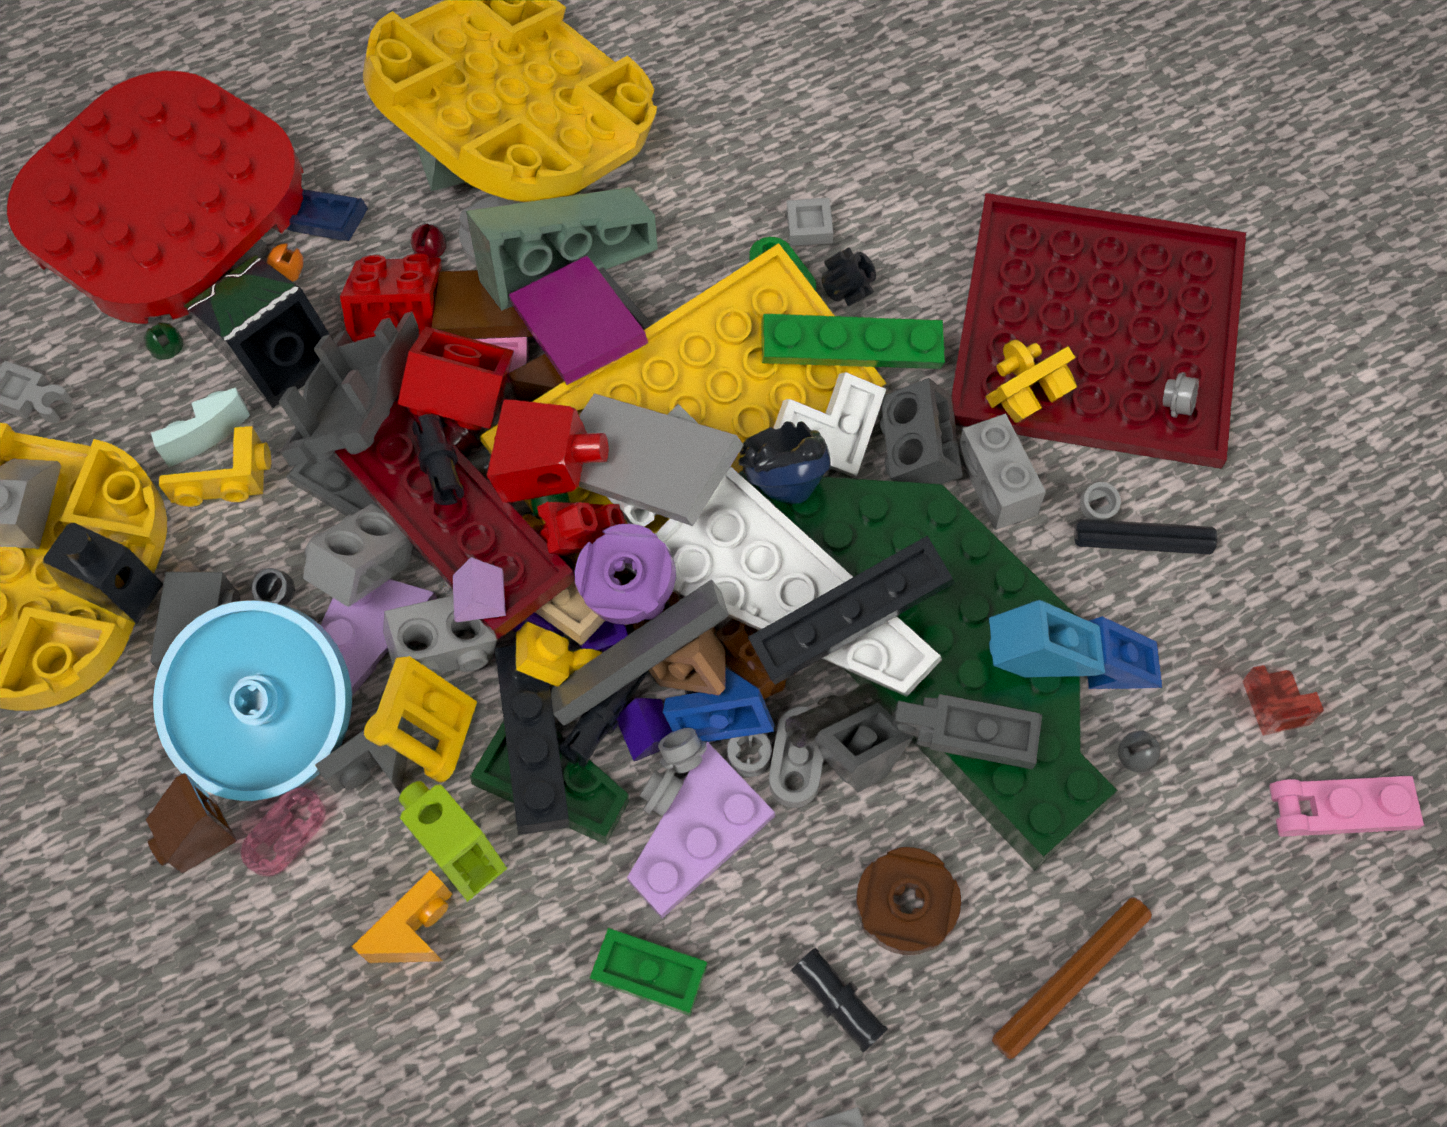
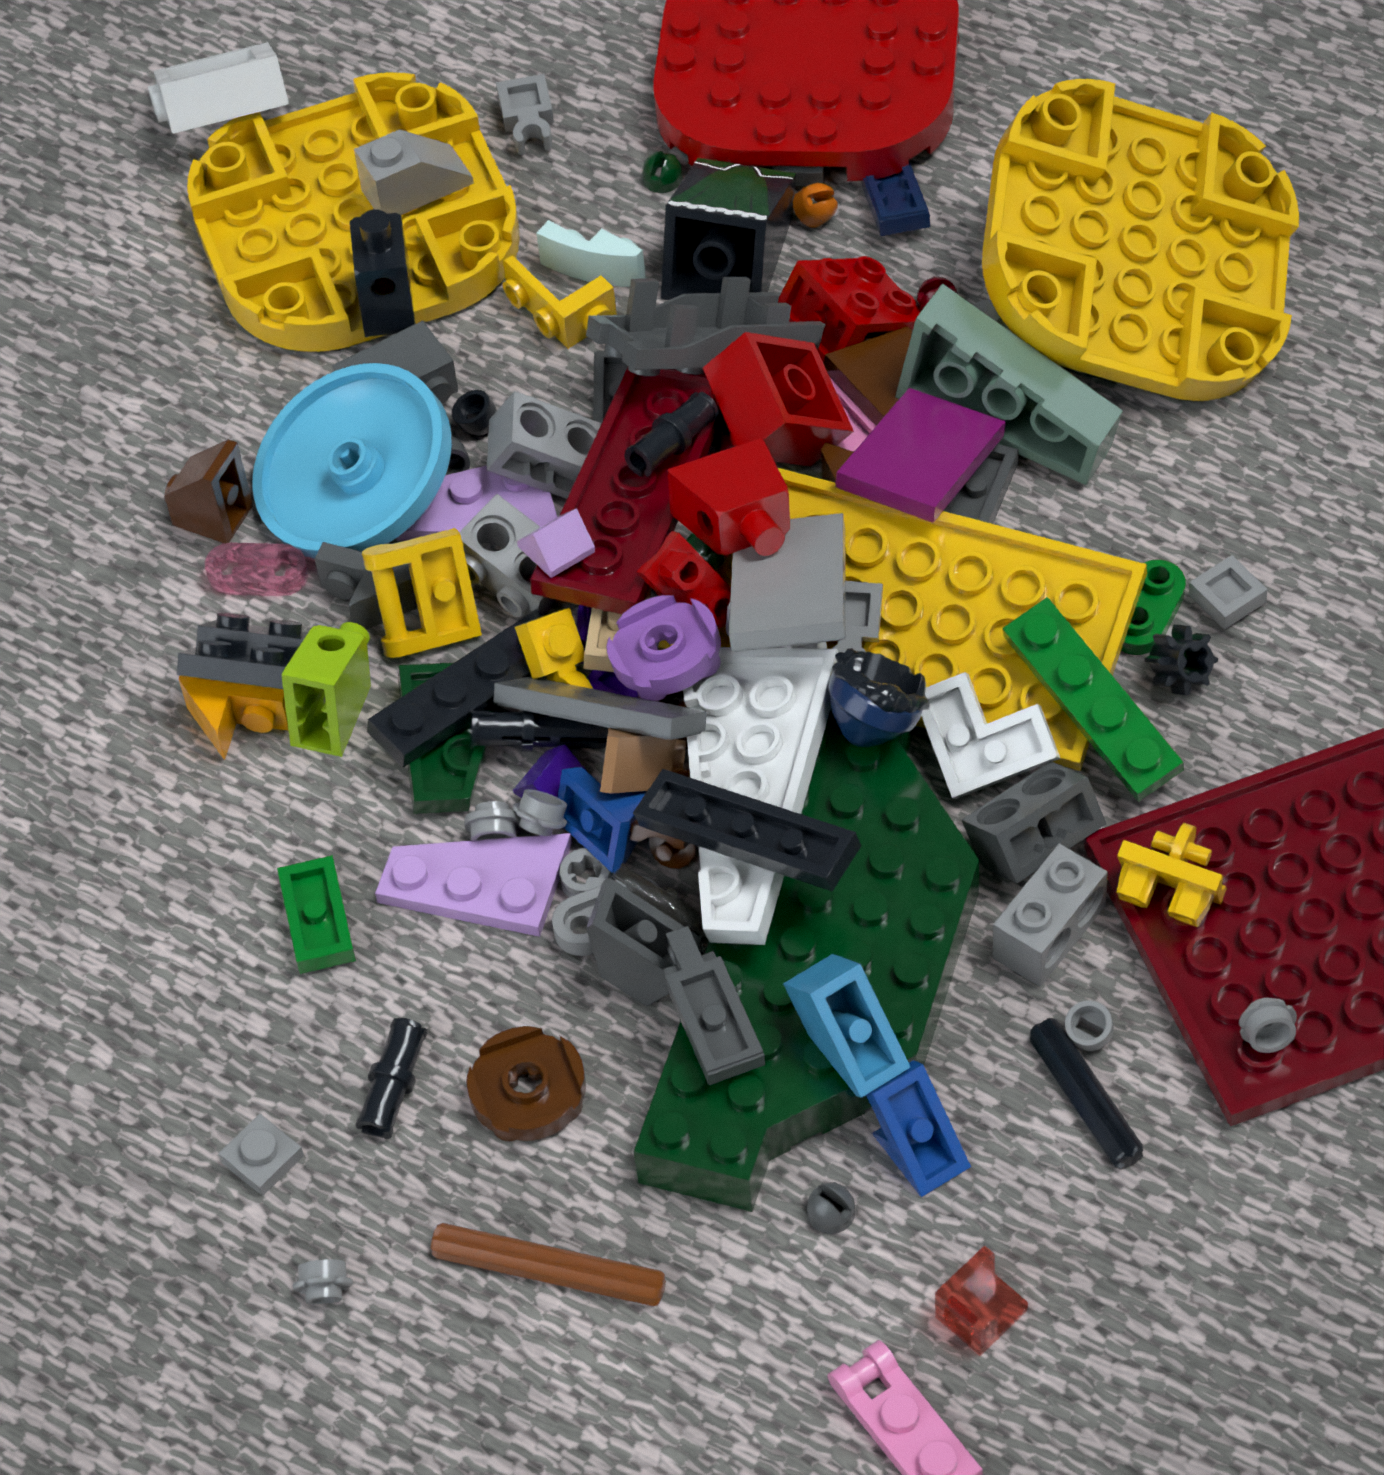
camera: 60 degrees right, 10 degrees down
(377, 884) = (242, 652): none -> black plate

